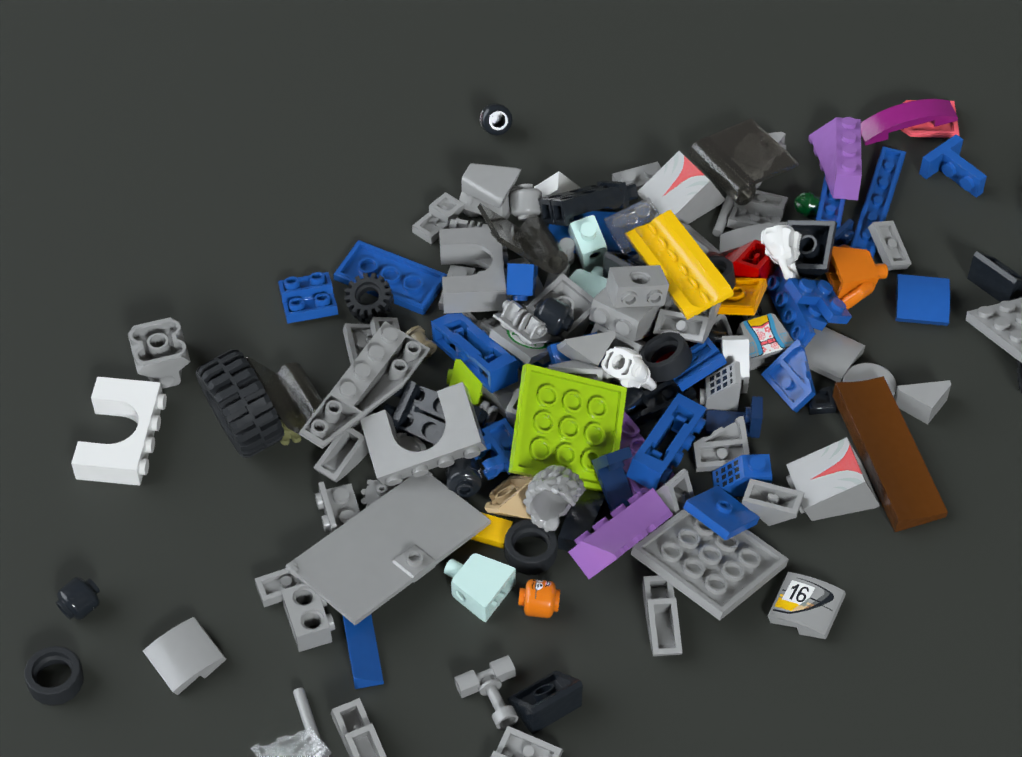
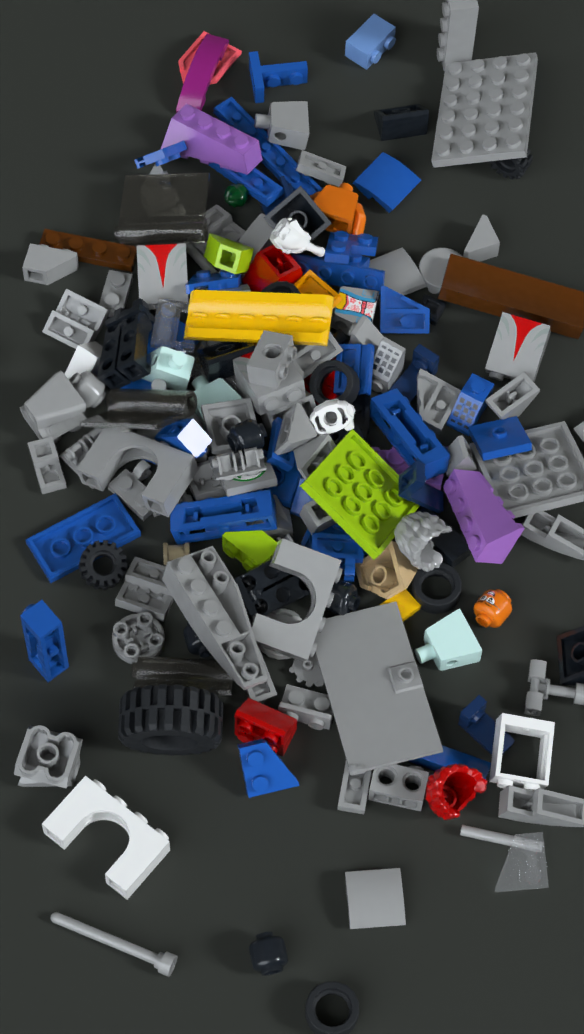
camera: 60 degrees left, 10 degrees up
(28, 530) = (163, 962): none -> light grey piece
(252, 504) = (264, 769): none -> blue wing
(255, 283) = (44, 645): none -> blue brick
(293, 483) = (259, 721): none -> red slope
(308, 297) = (69, 606): blue slope -> none
(315, 645) = (452, 789): none -> red hair
(323, 360) = (138, 637): none -> light grey tile
(391, 672) = (529, 727): none -> white window
(413, 653) = (481, 726): none -> dark blue bracket
(591, 165) = (76, 320): none -> light grey slope
(626, 120) = (48, 264): none -> light grey slope
(661, 132) = (93, 250): none -> reddish brown plate
(702, 227) = (215, 281): none -> blue wing
(733, 222) = (228, 254): none -> lime slope
(794, 129) = (162, 156): none -> blue plate
(911, 198) = (286, 123): none -> light grey torso

